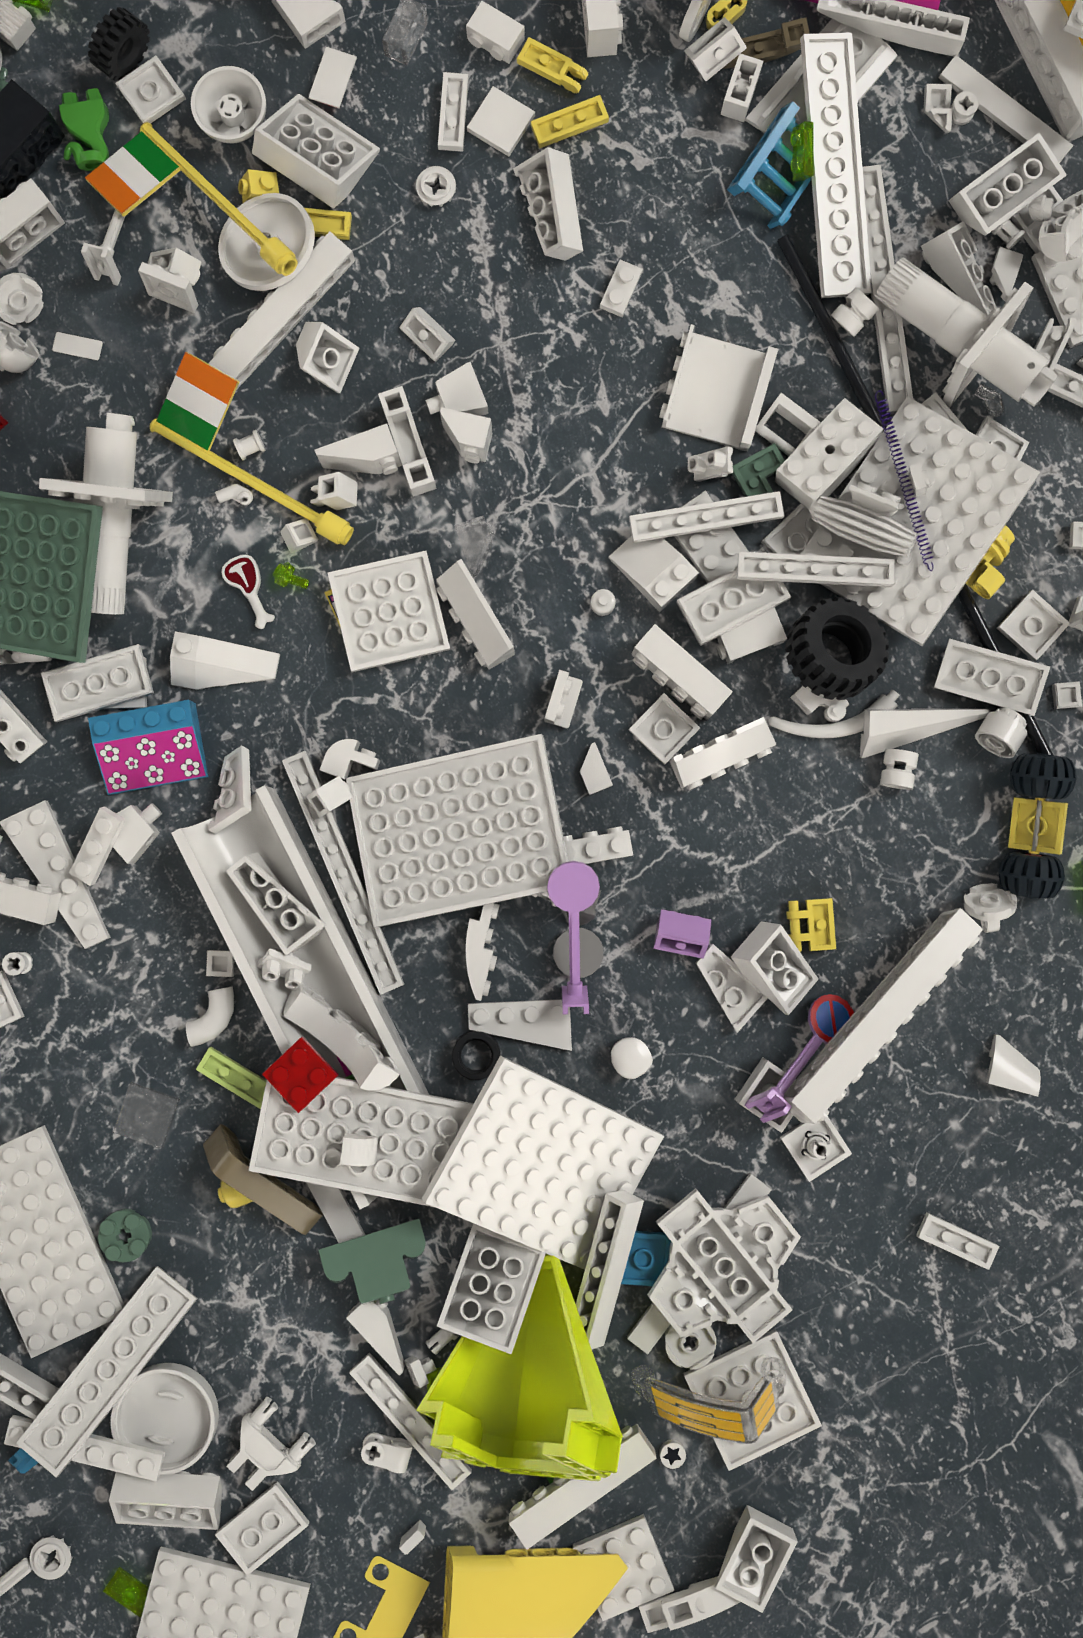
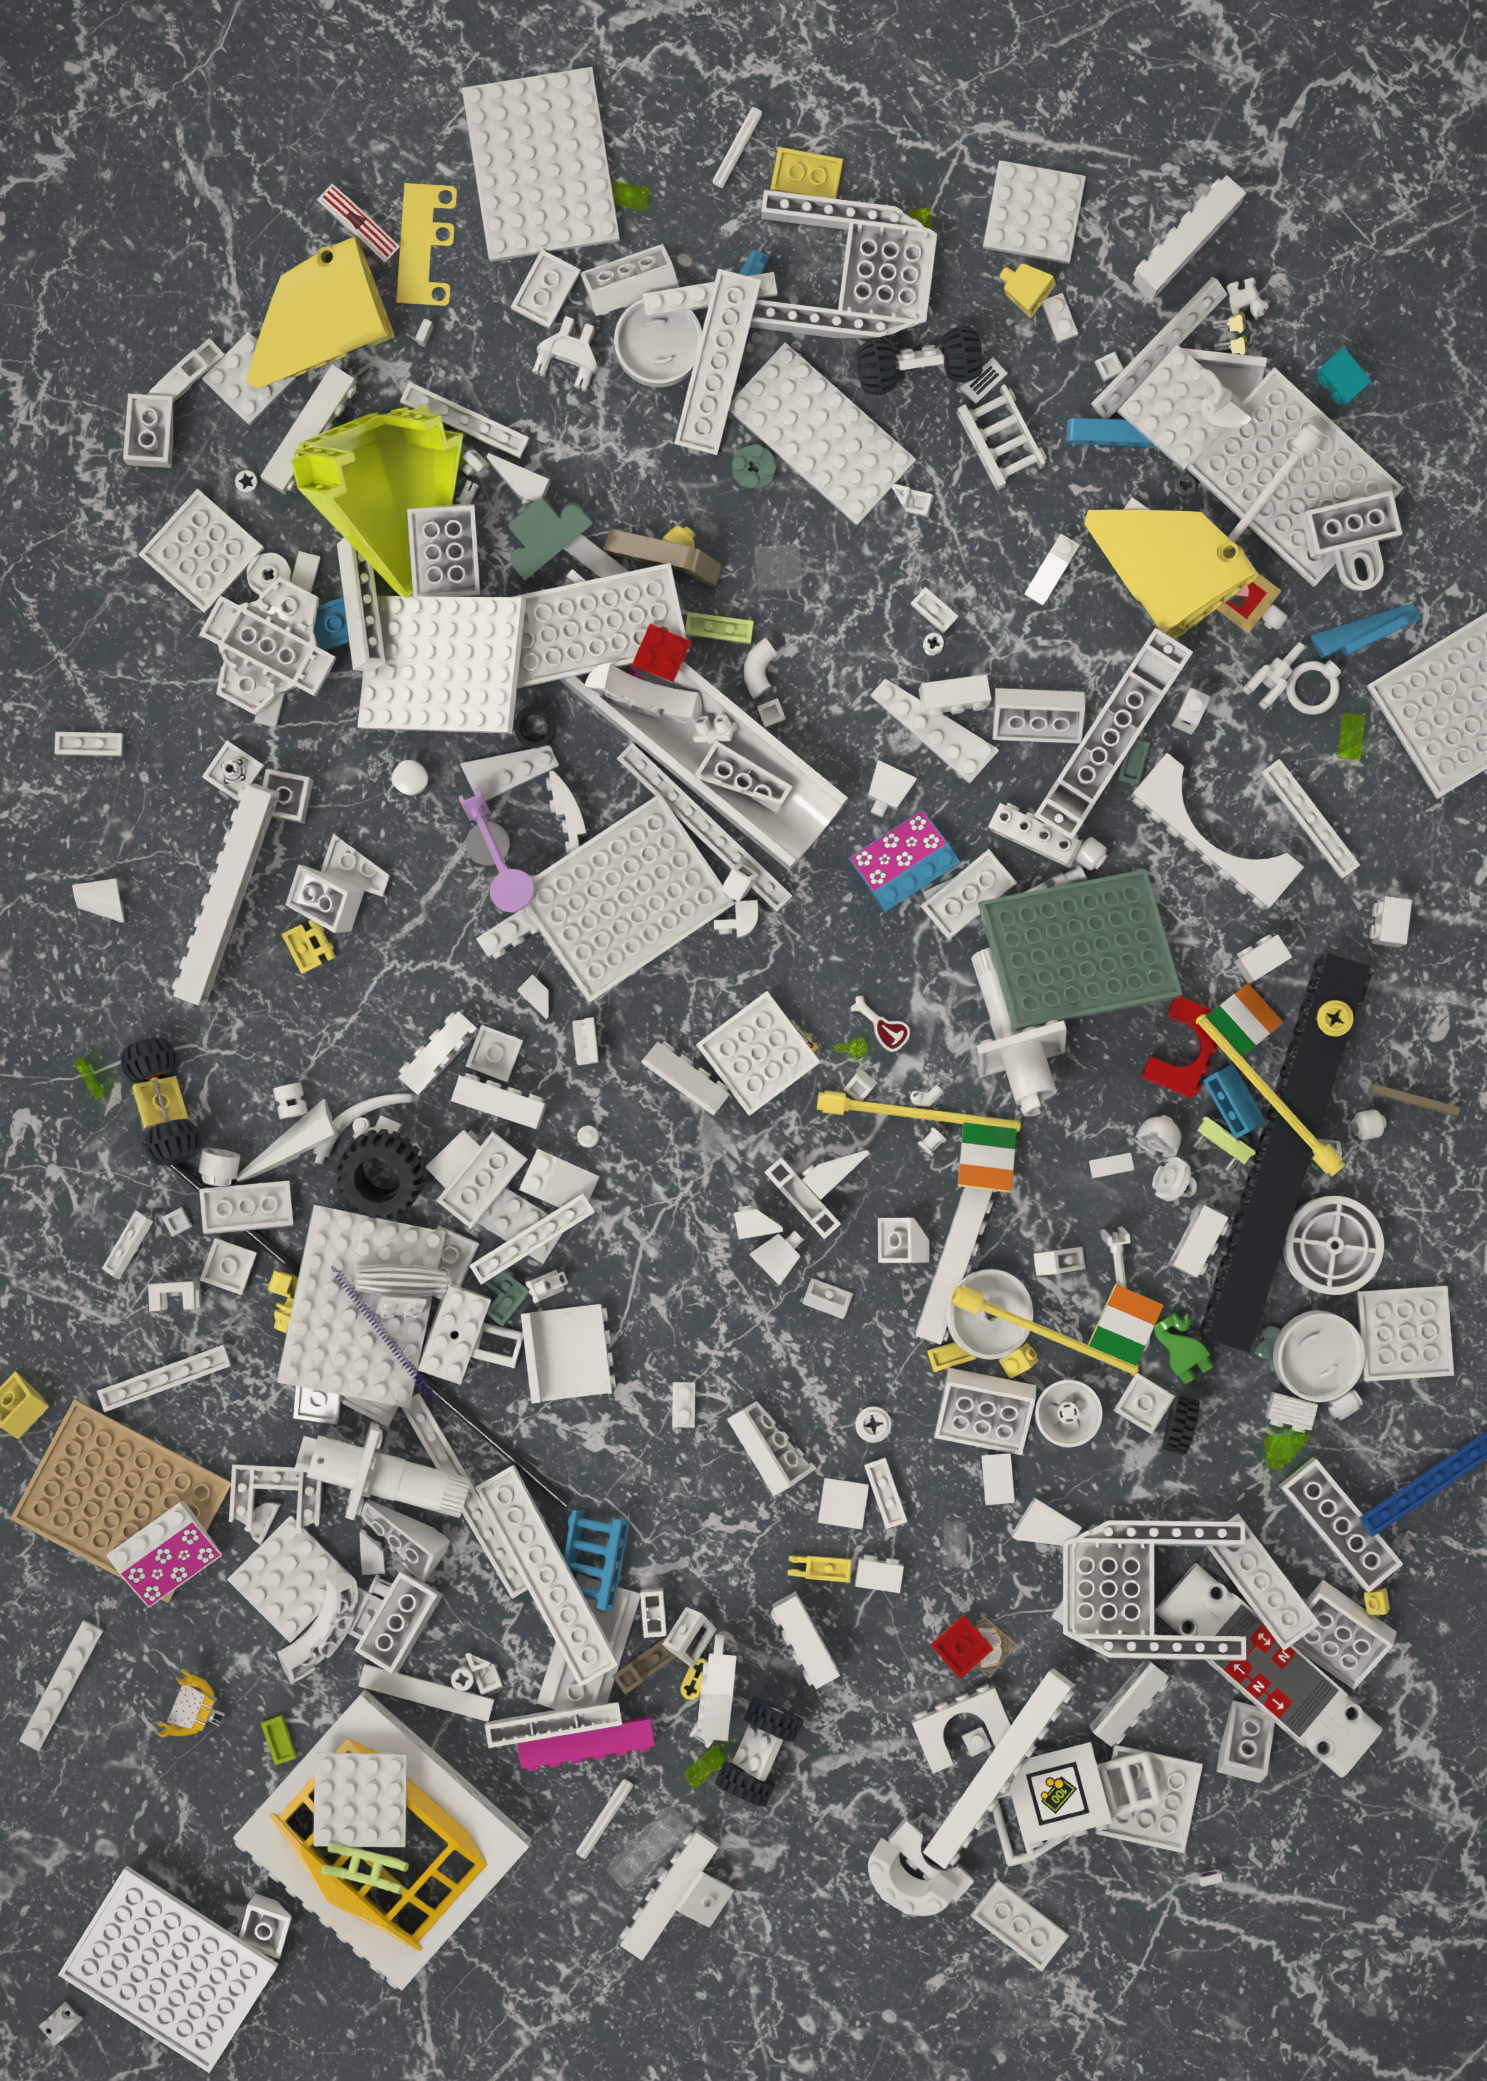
camera: 160 degrees right, 0 degrees up
(39, 1558) = (695, 189): white gear -> none
(97, 846) = (908, 763): white plate -> none
(168, 287) = (1061, 1241): white plate -> none
(208, 662) = (883, 951): white wedge -> none
(235, 791) = (816, 854): white wing -> none
(335, 491) = (843, 1132): white brick -> none
(358, 1150) = (590, 615): white brick -> none
(390, 1452) = (469, 389): white piece -> none
(569, 121) = (785, 1526): light yellow plate -> none
(682, 934) = (410, 893): lavender brick -> none
(715, 1416) = (227, 528): panel -> none
(803, 151) = (583, 1581): clear neon green plate -> none
(815, 569) = (425, 1229): white plate -> none
(825, 1019) = (267, 874): piece -> none
(854, 312) = (481, 1462): white wheel -> none
(919, 479) = (371, 1336): white plate -> none
(990, 905) = (173, 1021): white tile -> none
(1041, 208) = (363, 1612): white plate -> none

